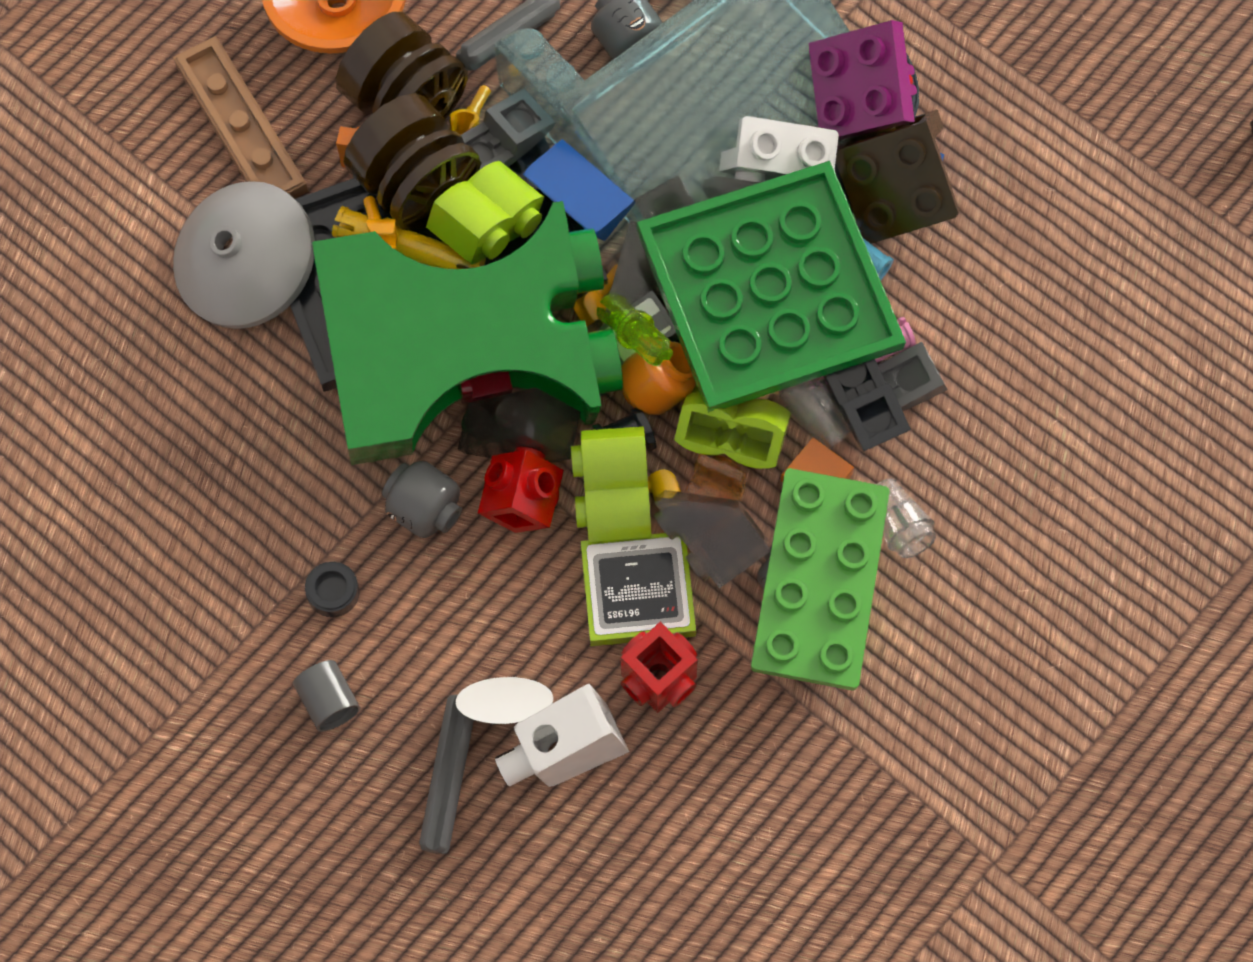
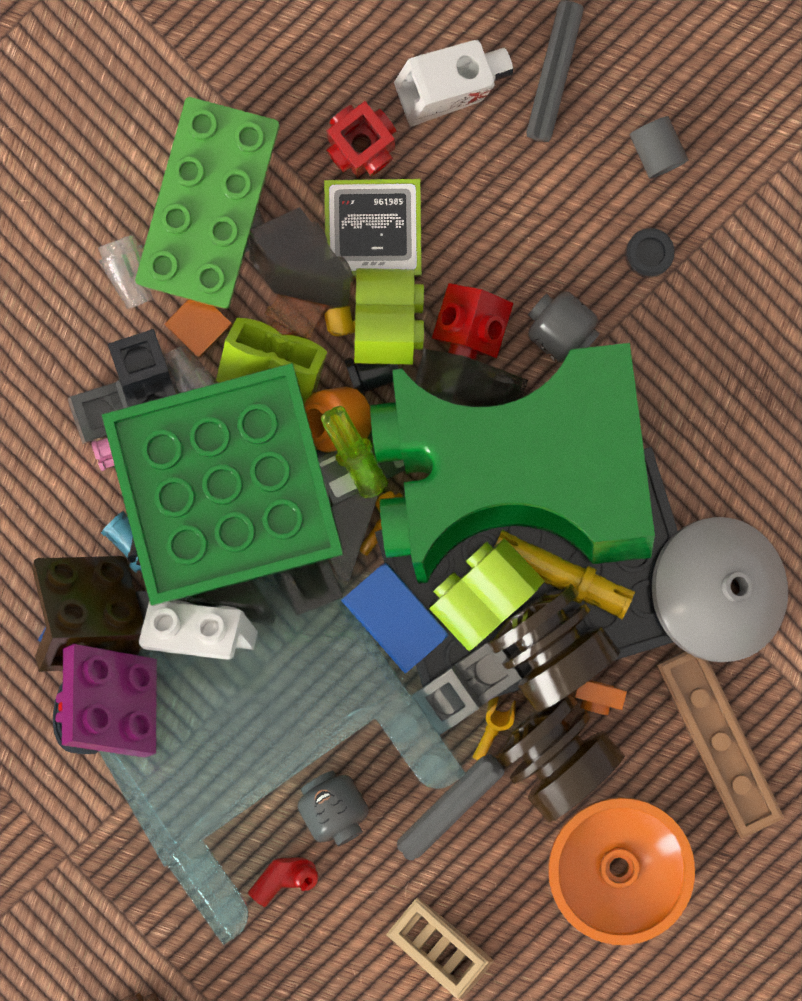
camera: 175 degrees left, 20 degrees up
(383, 227) = (588, 574): light orange hand -> none
(503, 700) = (501, 124): white sticker -> none

